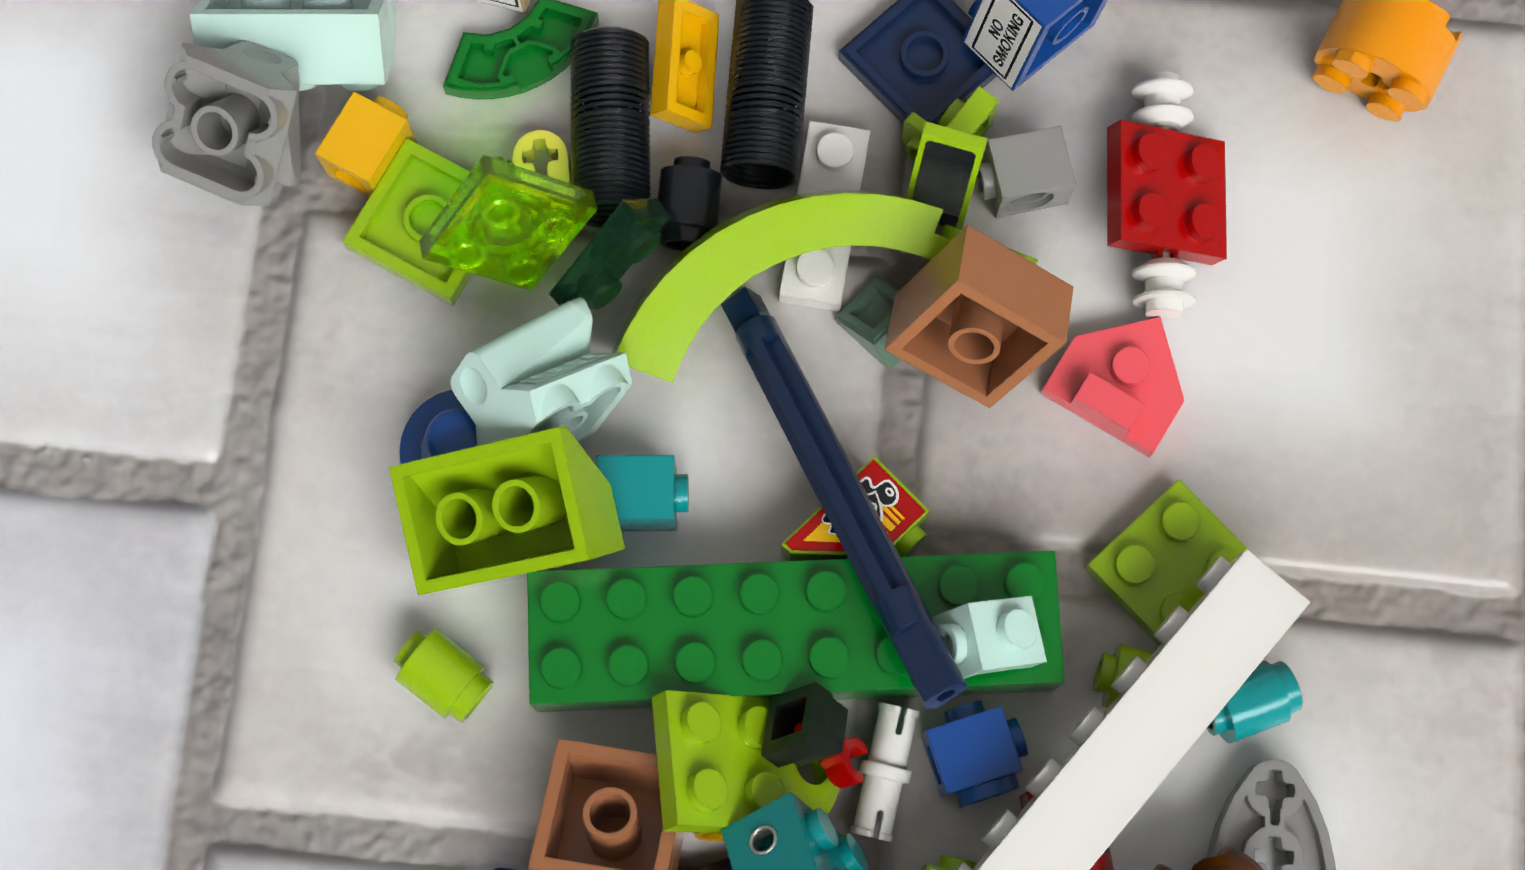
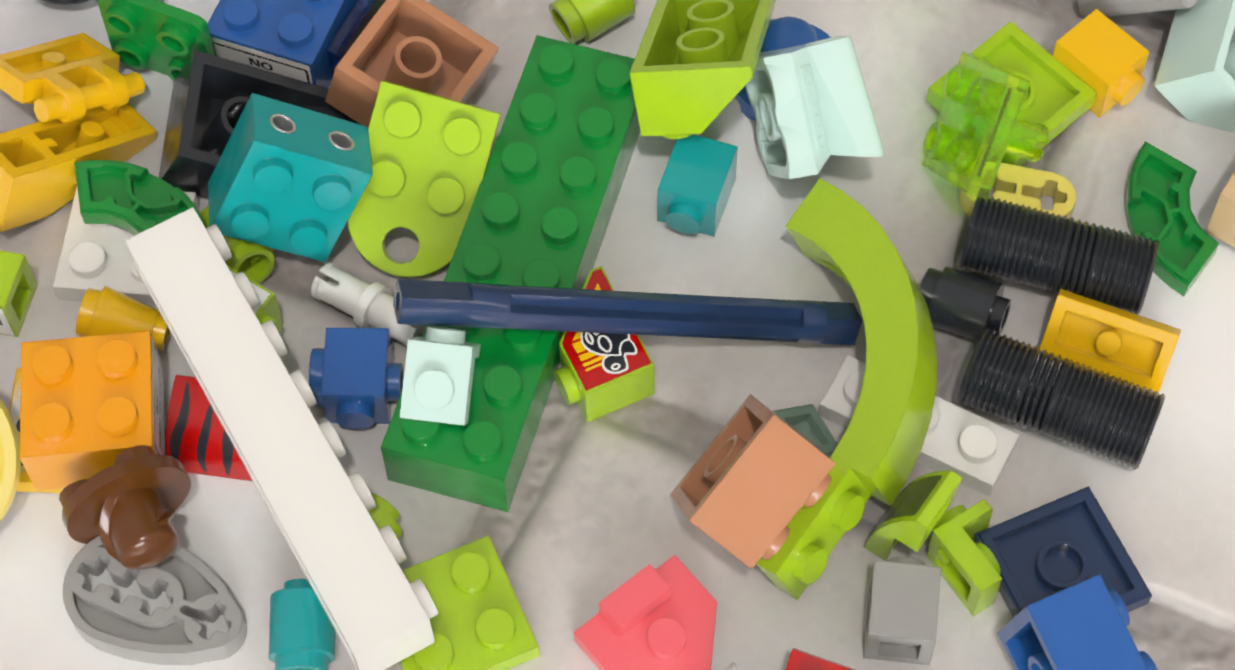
camera: 110 degrees right, 15 degrees down
(620, 242) = (922, 204): clear green plate -> none
(809, 728) = (427, 231): pearl dark grey piece -> none

